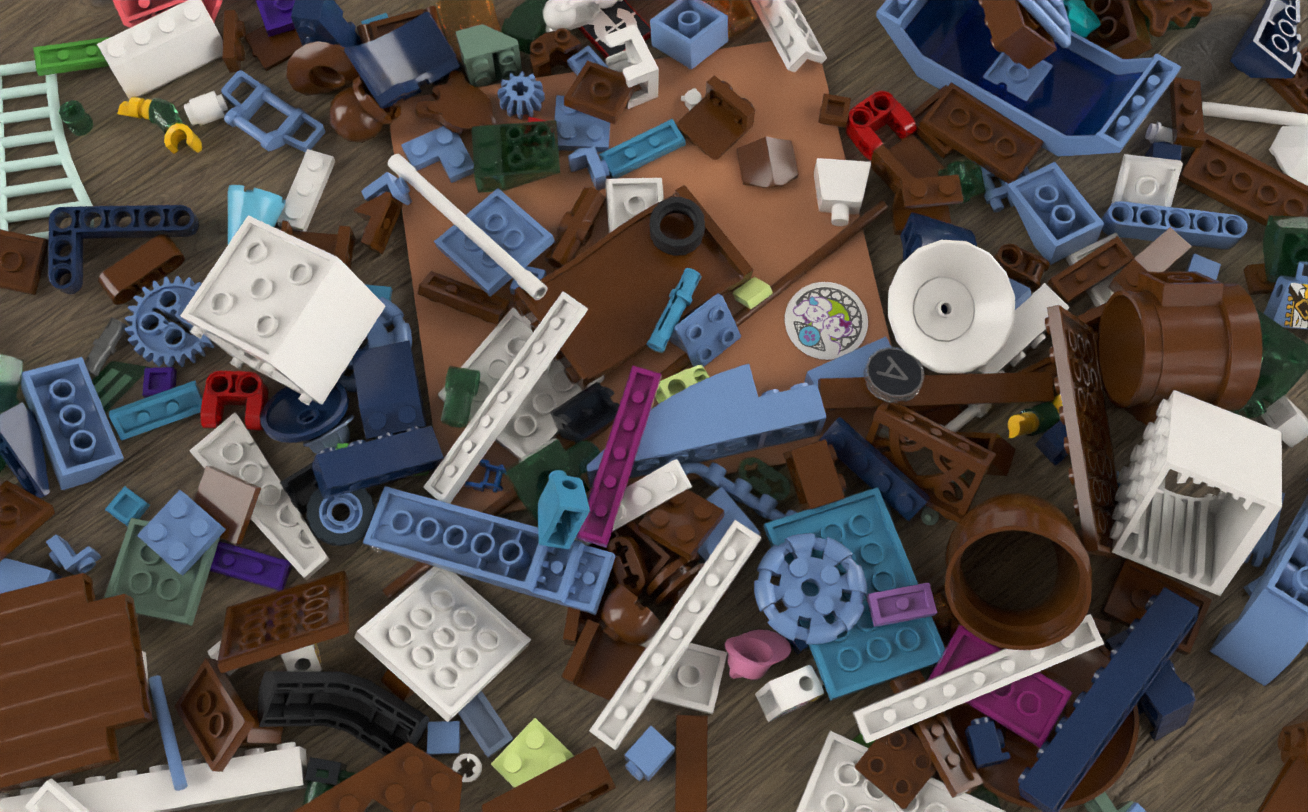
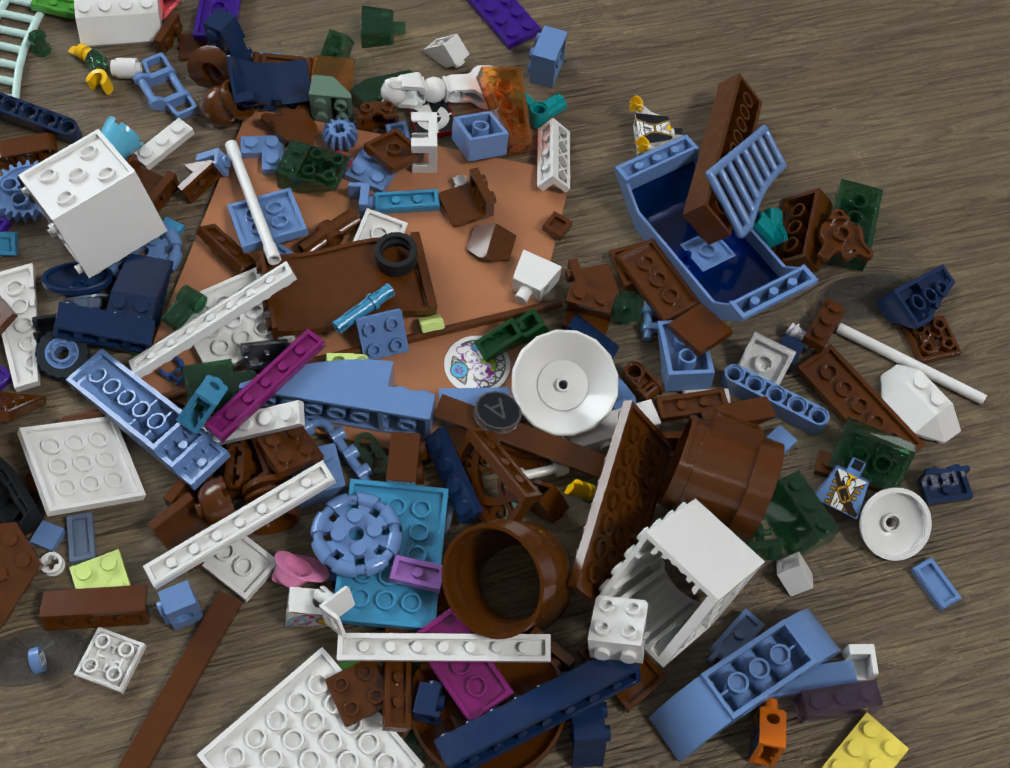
camera: 20 degrees right, 10 degrees down
(235, 394) = (37, 247): red piece -> none
(833, 685) = (334, 606): none -> white bracket
(852, 270) = (511, 335): none -> dark green slope
(873, 119) = (580, 241): red piece -> none
(1062, 176) = (699, 329): none -> reddish brown tile
(1160, 575) = (618, 629): none -> white bracket

